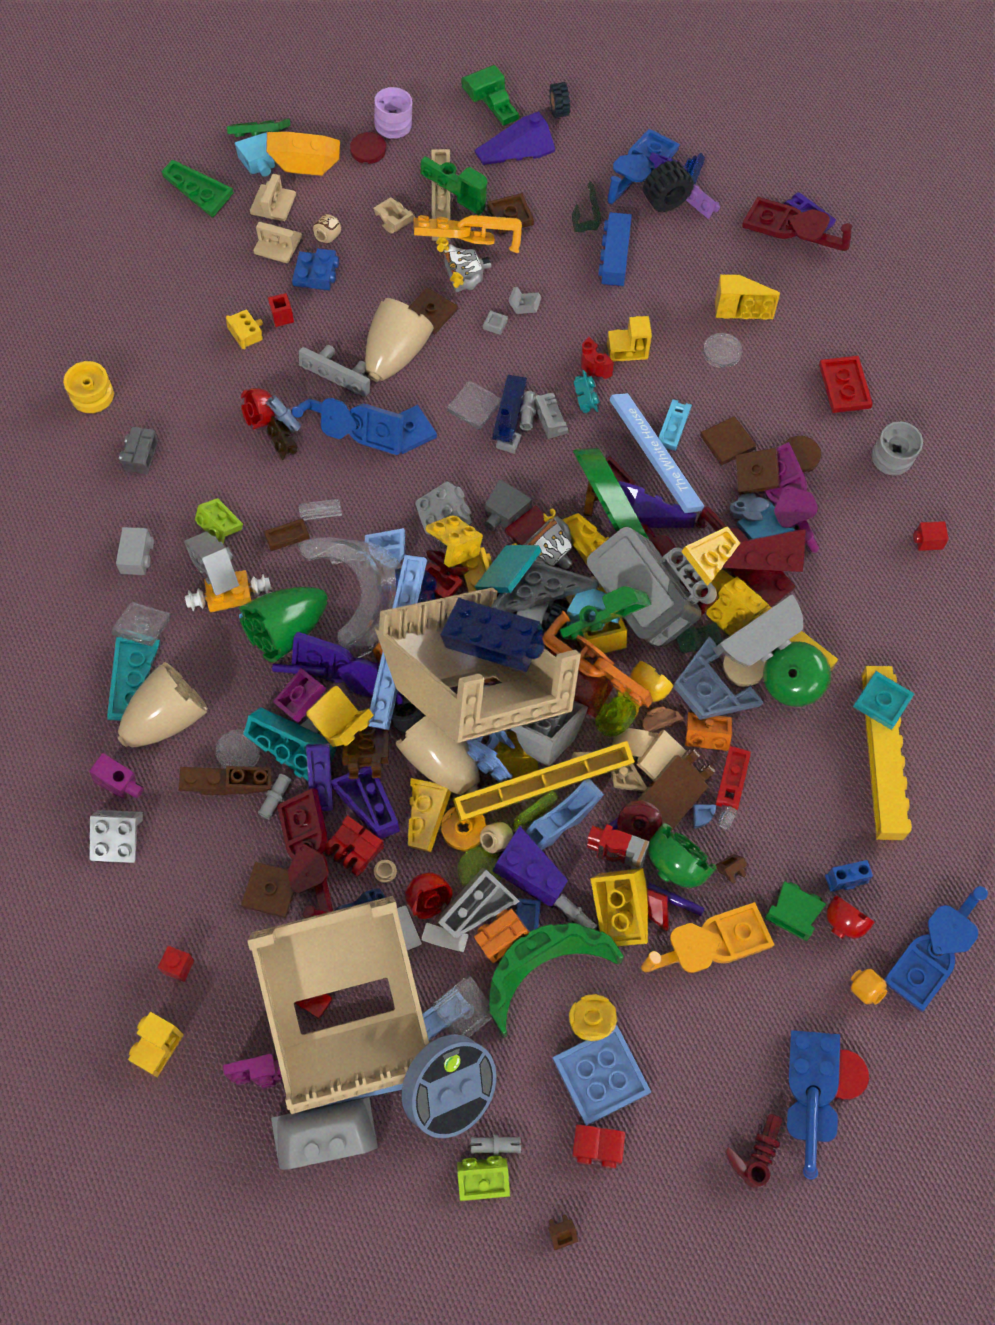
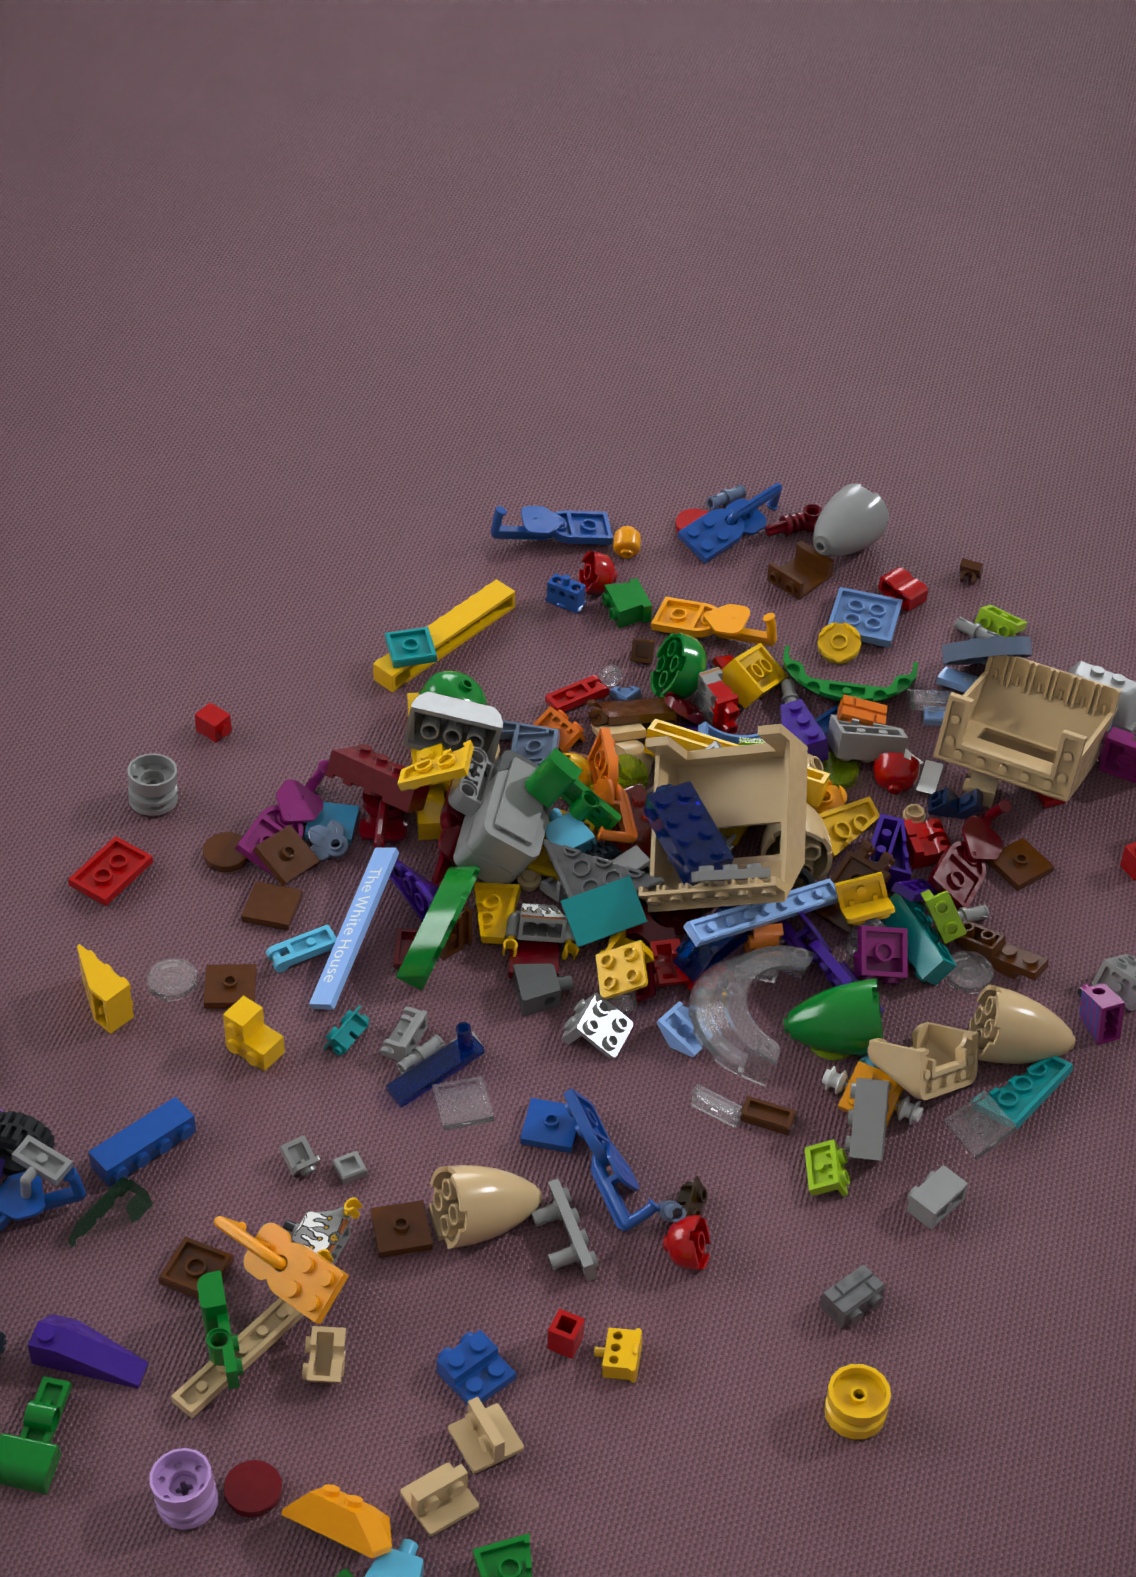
camera: 140 degrees left, 20 degrees down
(205, 628) = (936, 1063): none -> tan windscreen
(281, 756) = (944, 915): none -> lime bracket
(327, 228) = (415, 1403): tan head -> none
(428, 617) = (729, 872): none -> light grey plate
(595, 363) = (306, 1051): red cylinder -> none
(633, 166) = (39, 1161): none -> light grey plate
(686, 371) = (228, 983): none -> reddish brown plate
(701, 1086) = (803, 572): none -> reddish brown panel
(702, 1157) = (850, 521): none -> light grey cylinder
(853, 1136) = (726, 497): none -> sand blue pin

